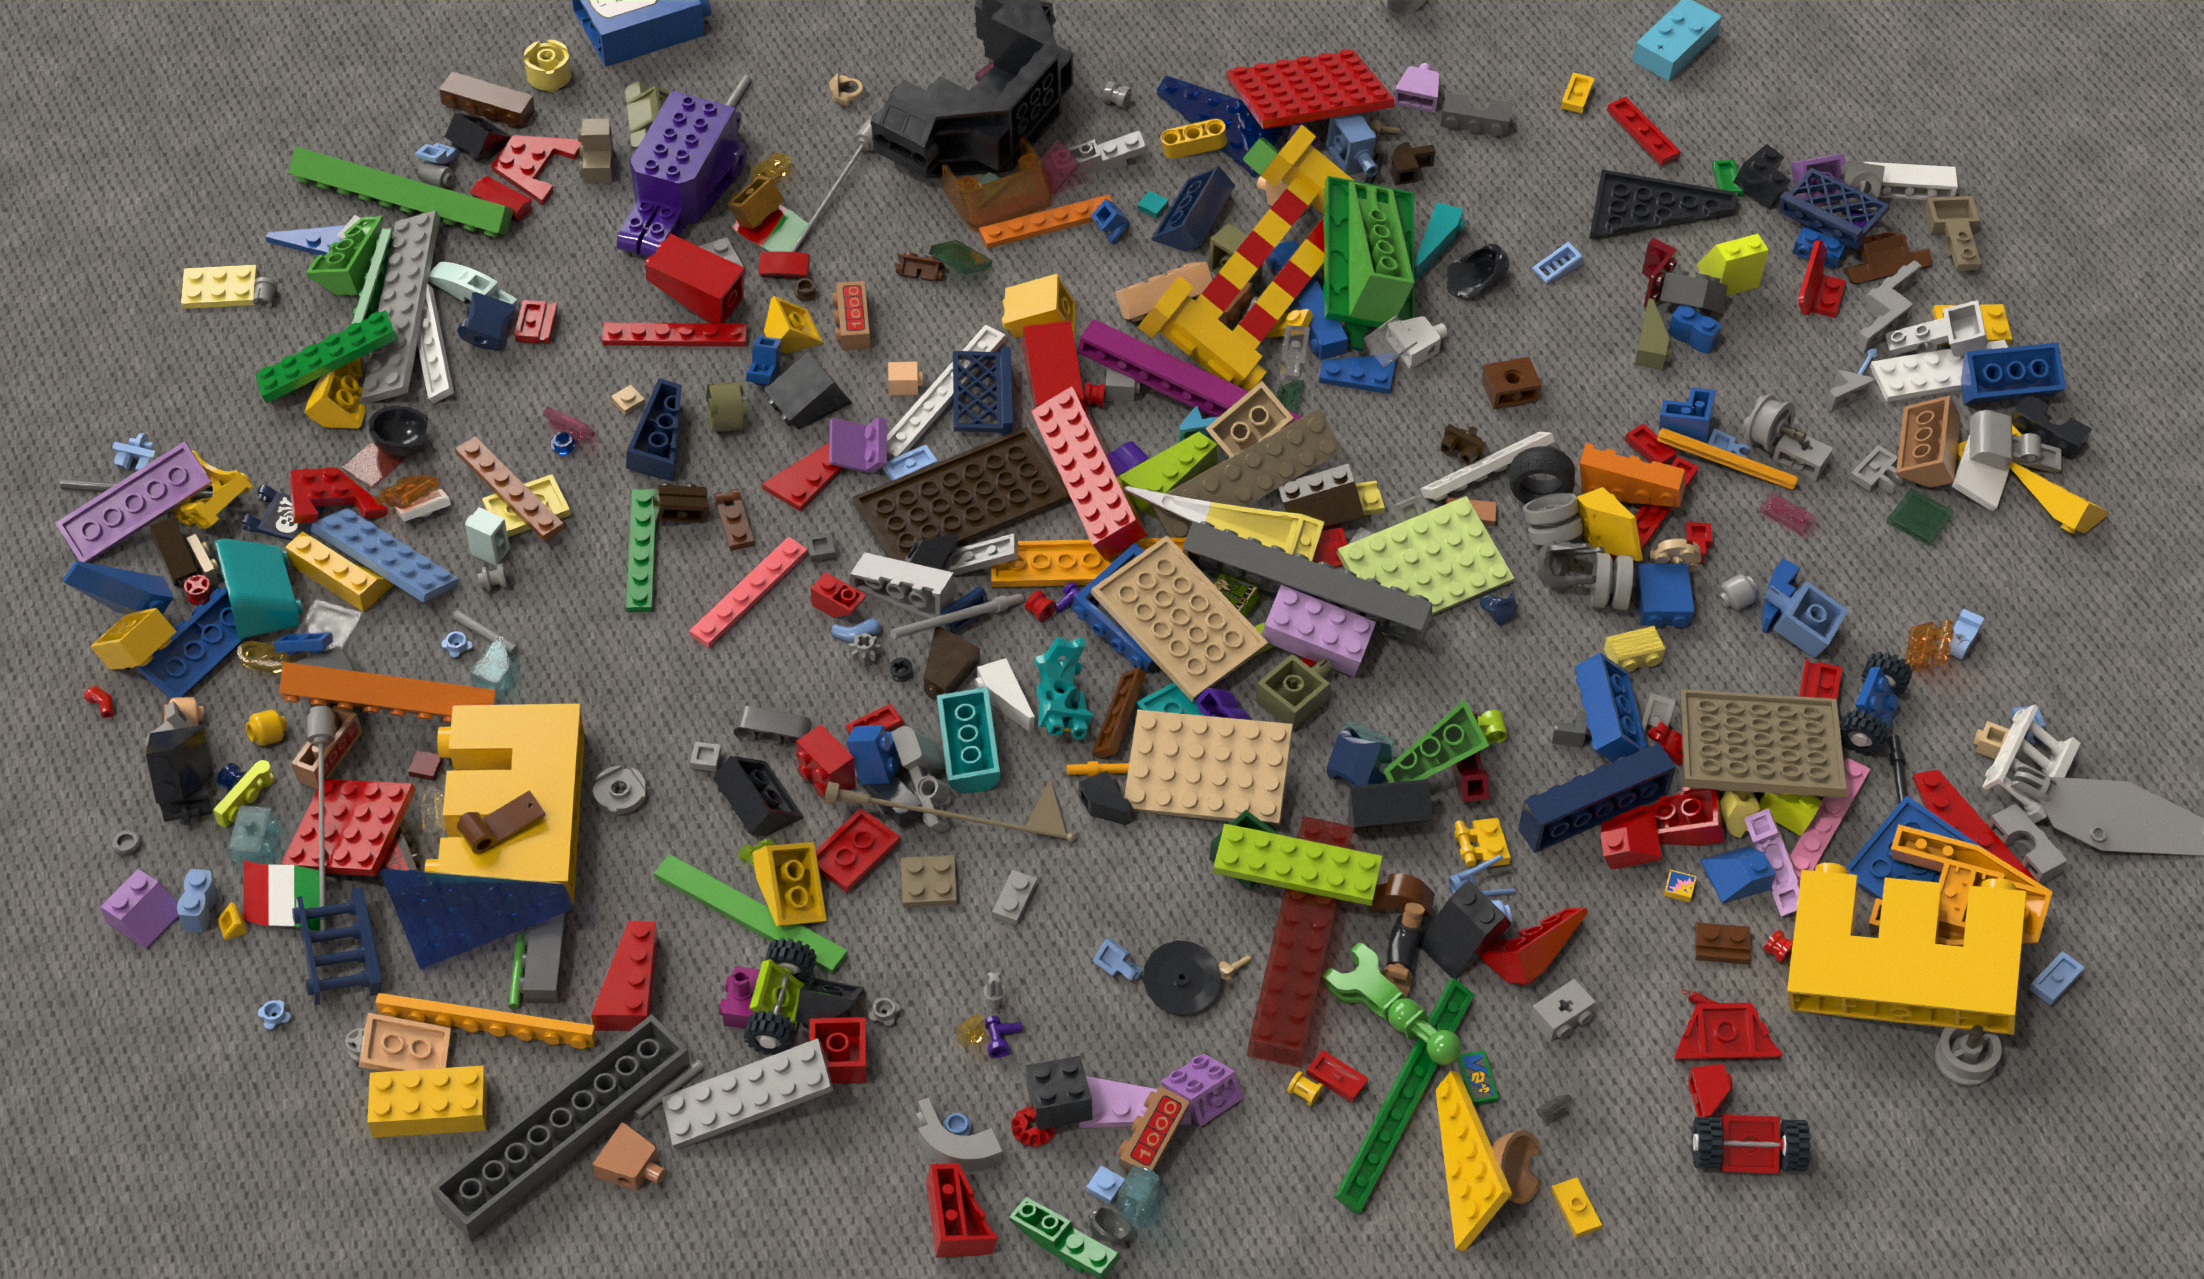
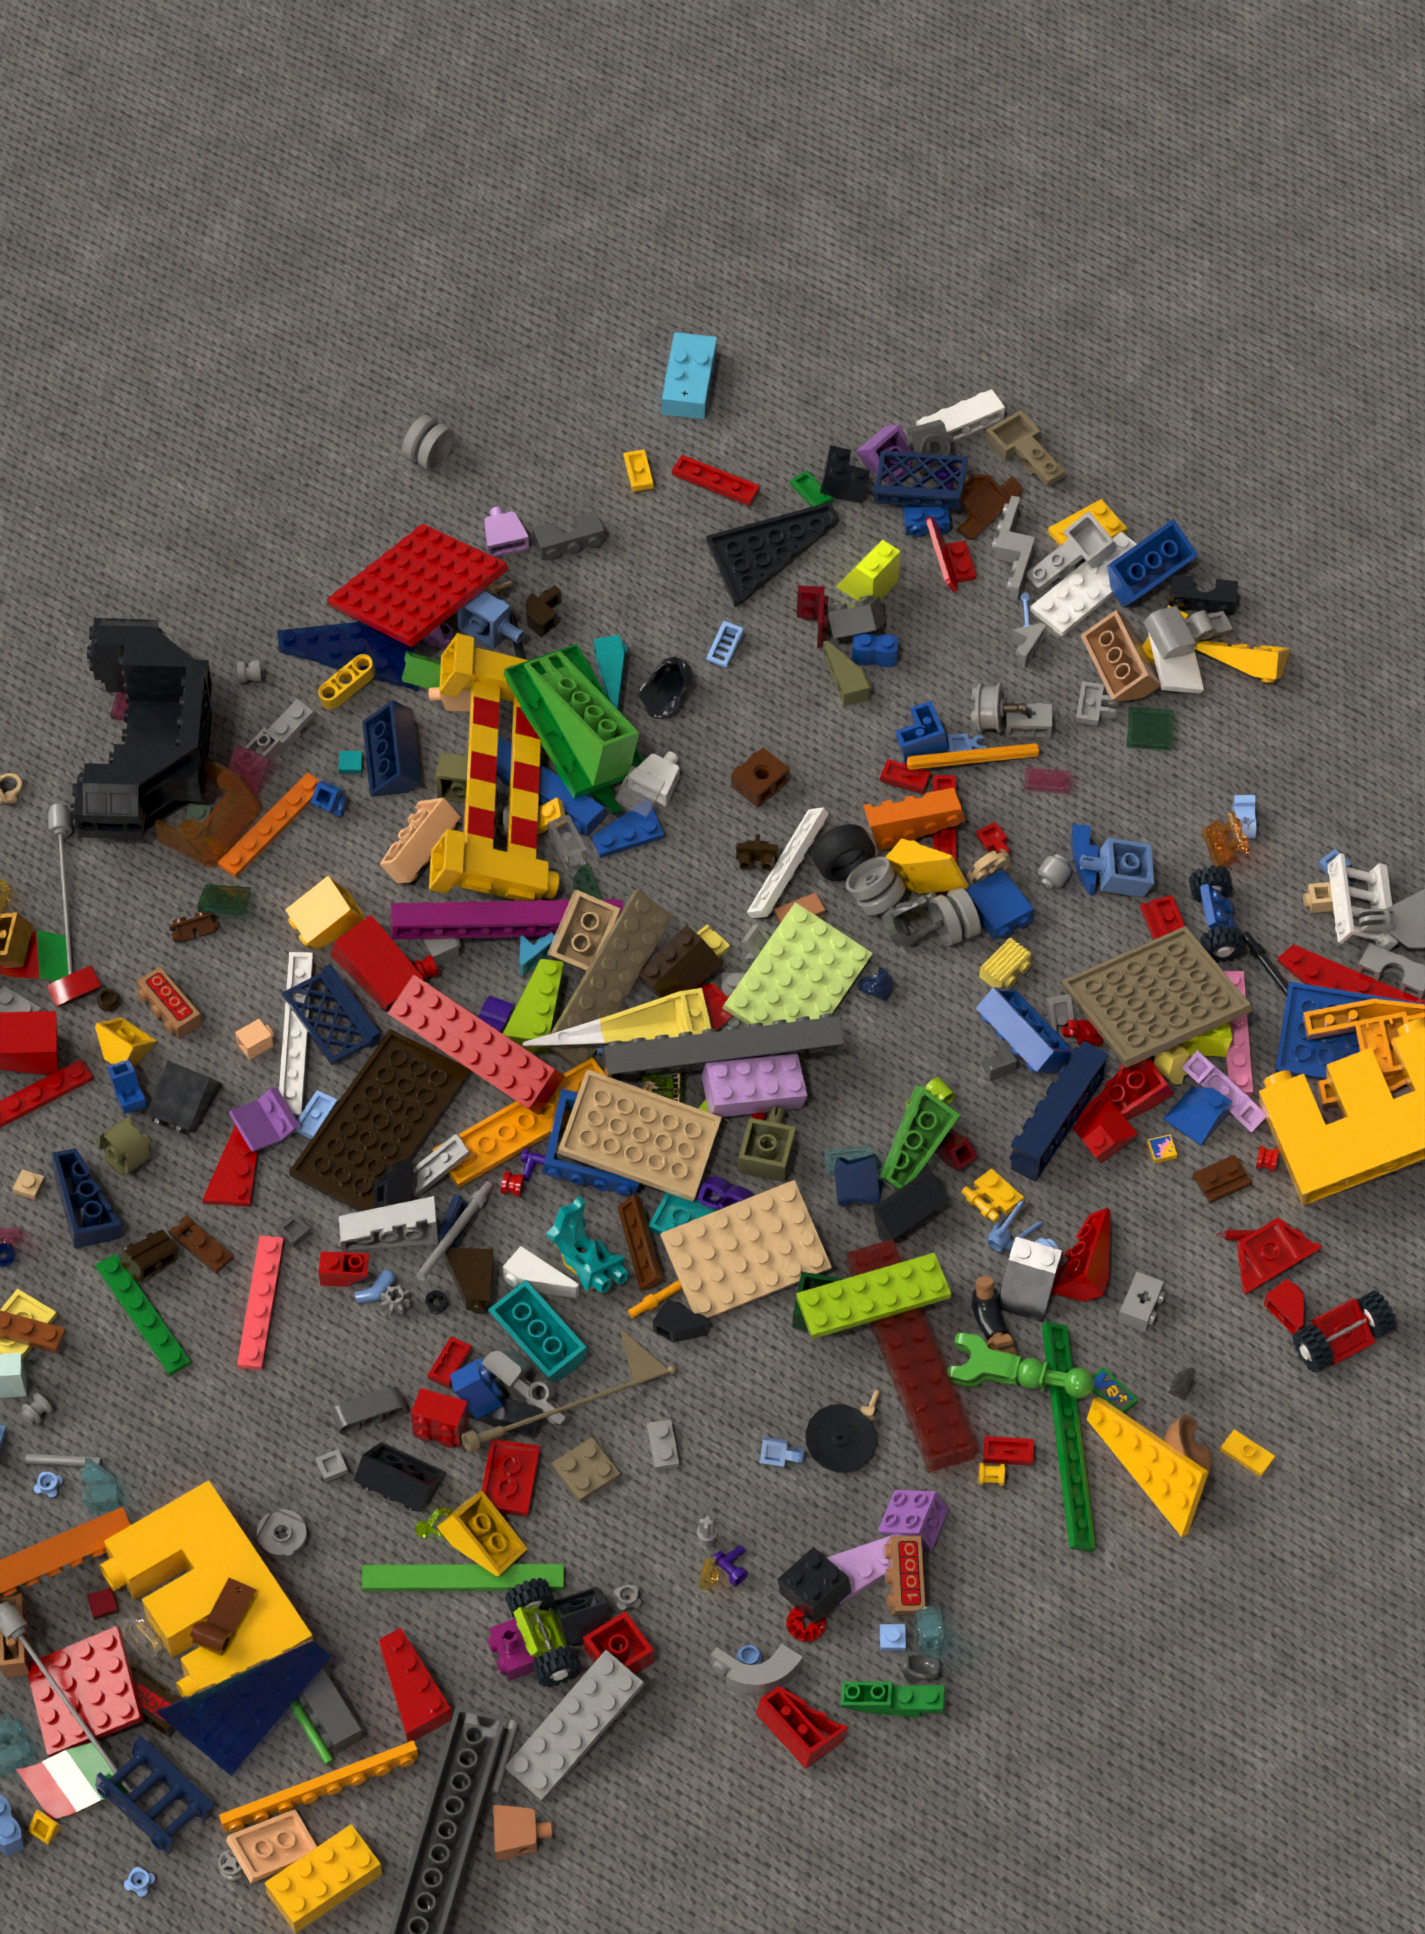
camera: 30 degrees left, 5 degrees up
(1400, 891) = (964, 1271): reddish brown brick -> none

